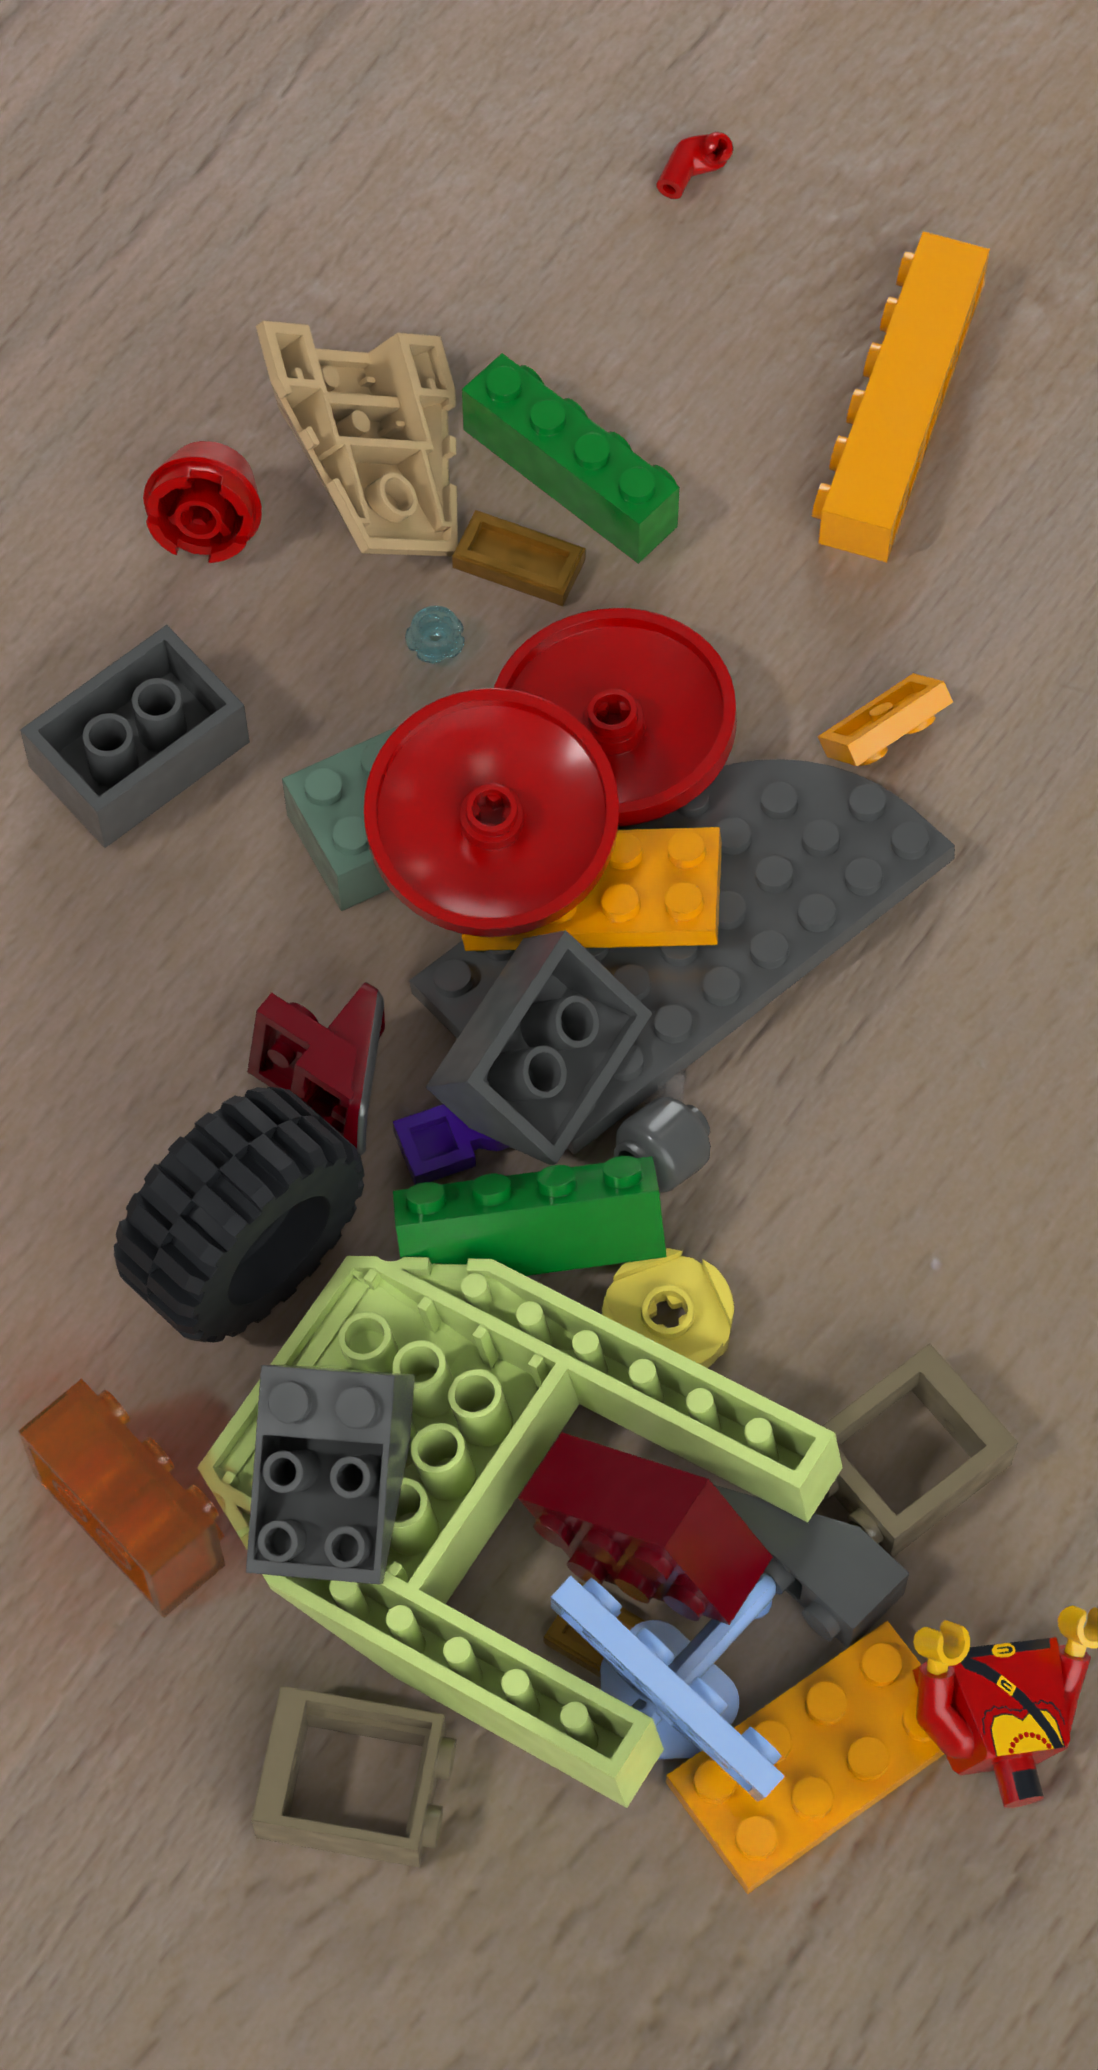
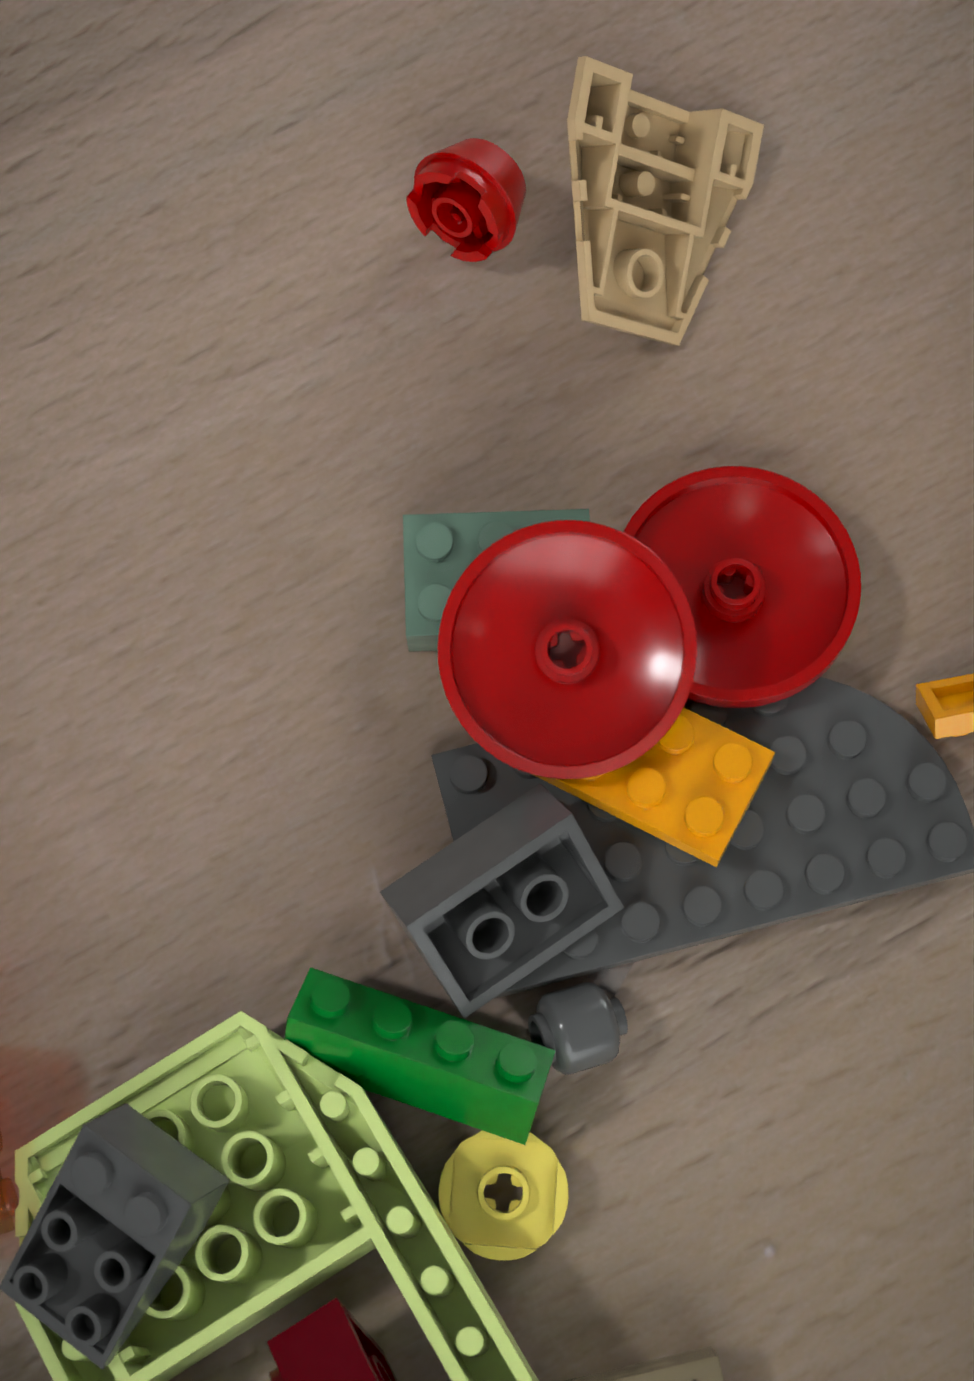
camera: 25 degrees right, 15 degrees up
(135, 735) = (298, 405): dark grey brick -> none
(238, 1213) = (147, 943): black tyre -> none
(321, 1064) = (310, 830): dark red piece -> none
(430, 622) = (617, 407): clear light blue plate -> none
(439, 1144) = (373, 928): dark purple plate -> none
(519, 558) = (731, 377): pearl gold tile -> none
(571, 457) = (824, 301): green brick -> none

